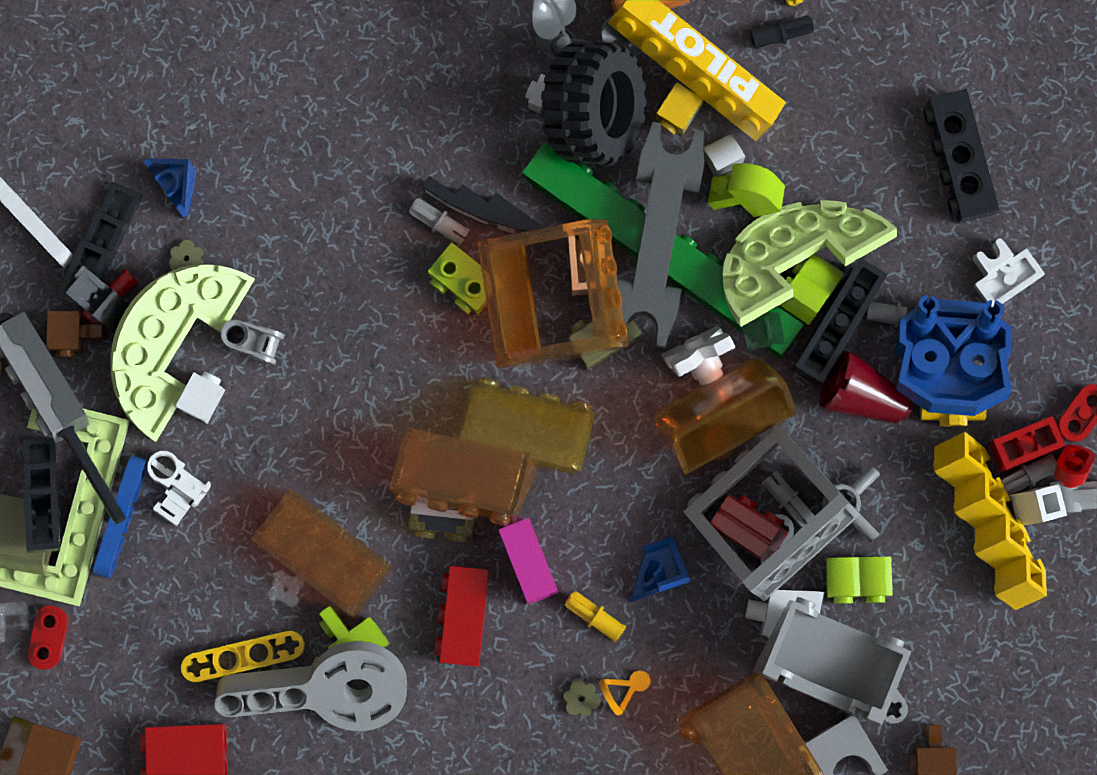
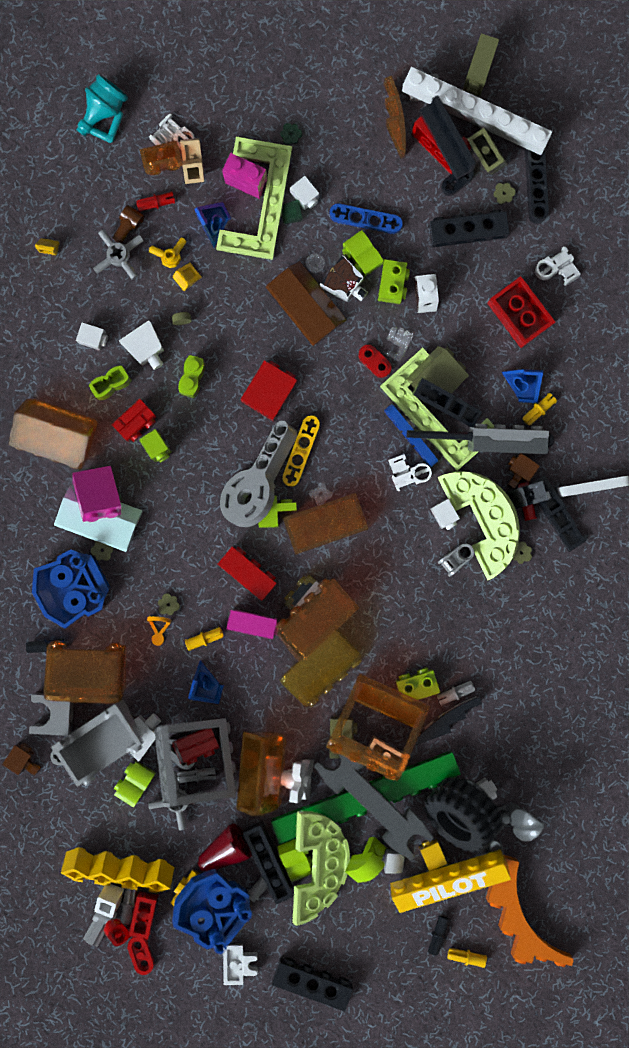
camera: 115 degrees right, 5 degrees up
(176, 179) = (565, 573): blue slope -> none
(764, 331) = (288, 821): clear green slope -> none

